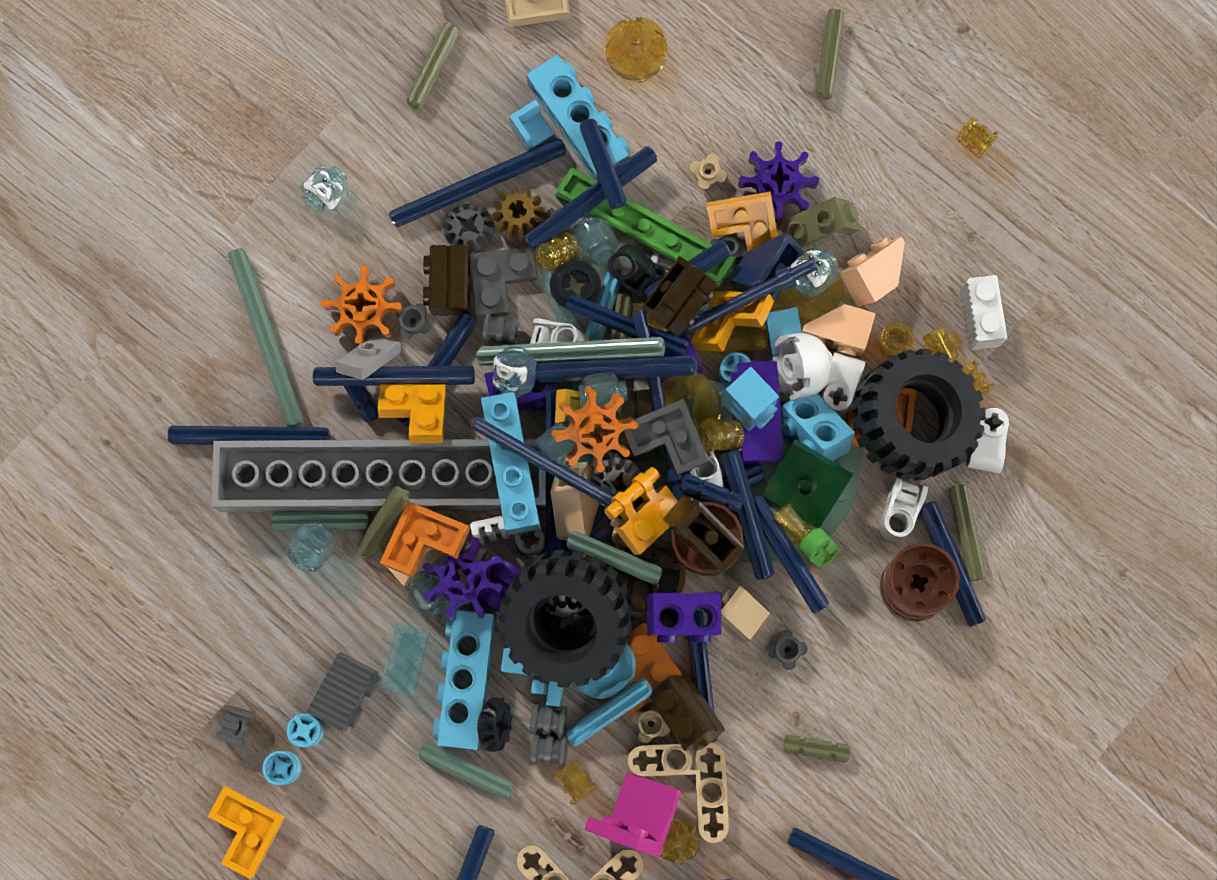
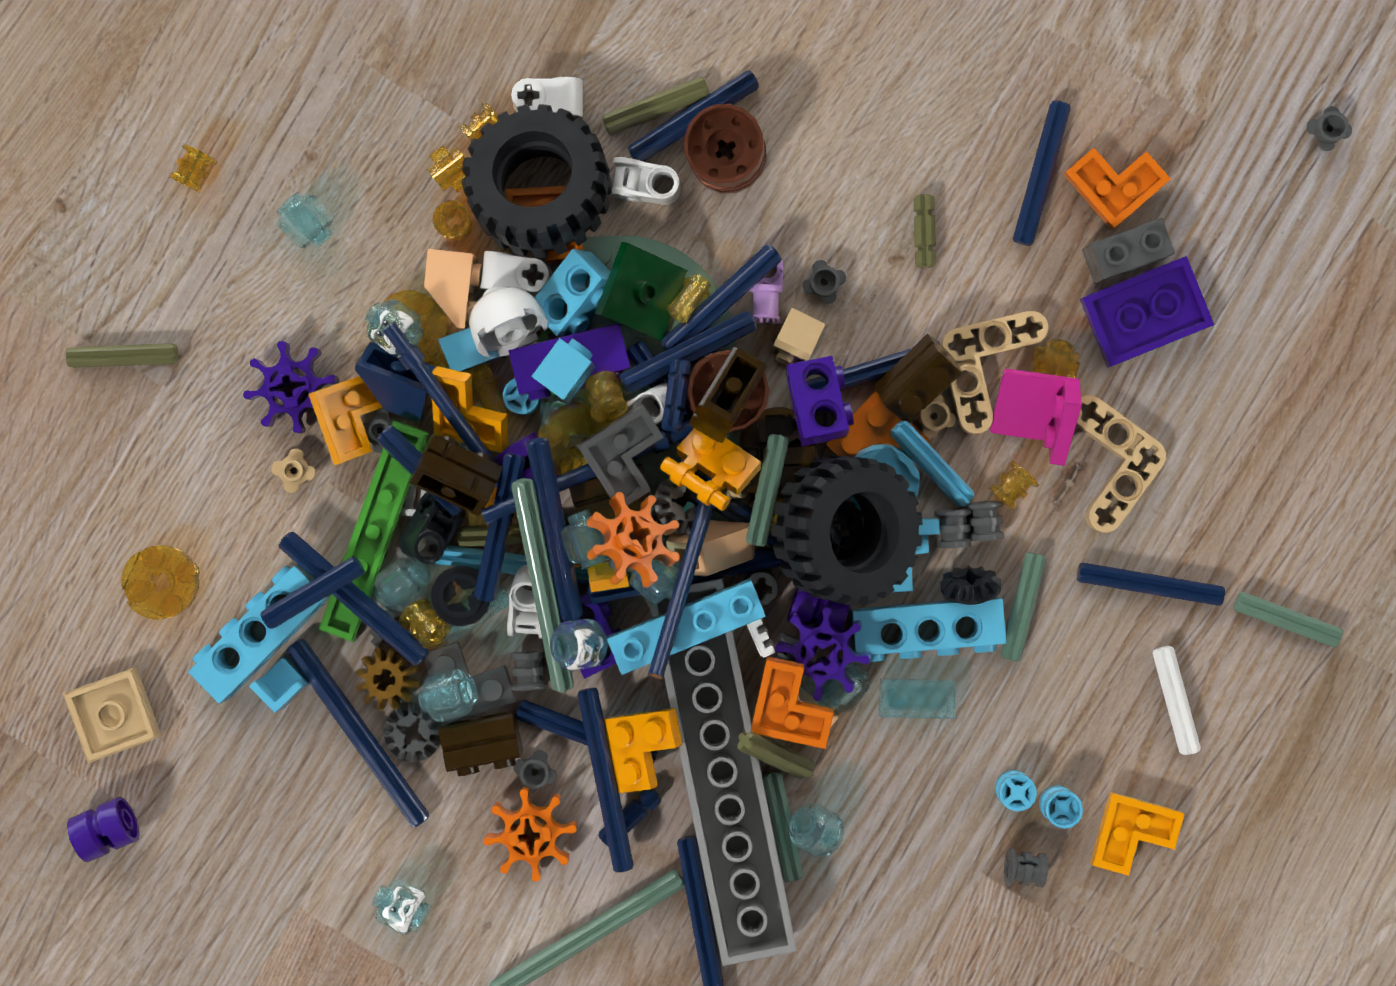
camera: 100 degrees left, 10 degrees up
(343, 692) = (966, 758): dark grey brick -> none
(368, 357) = (590, 813): light grey plate -> none
(432, 65) = (226, 815): olive axle -> none
(493, 258) = (448, 695): none -> clear light blue head
(782, 595) = (767, 298): none -> lavender connector
(819, 547) = (708, 265): bright green beam -> none
(821, 221) = (329, 329): olive bracket -> none
(876, 273) = (378, 257): light nougat slope -> none
(917, 219) = (305, 220): none -> clear light blue head
(983, 312) = (401, 127): white brick -> none

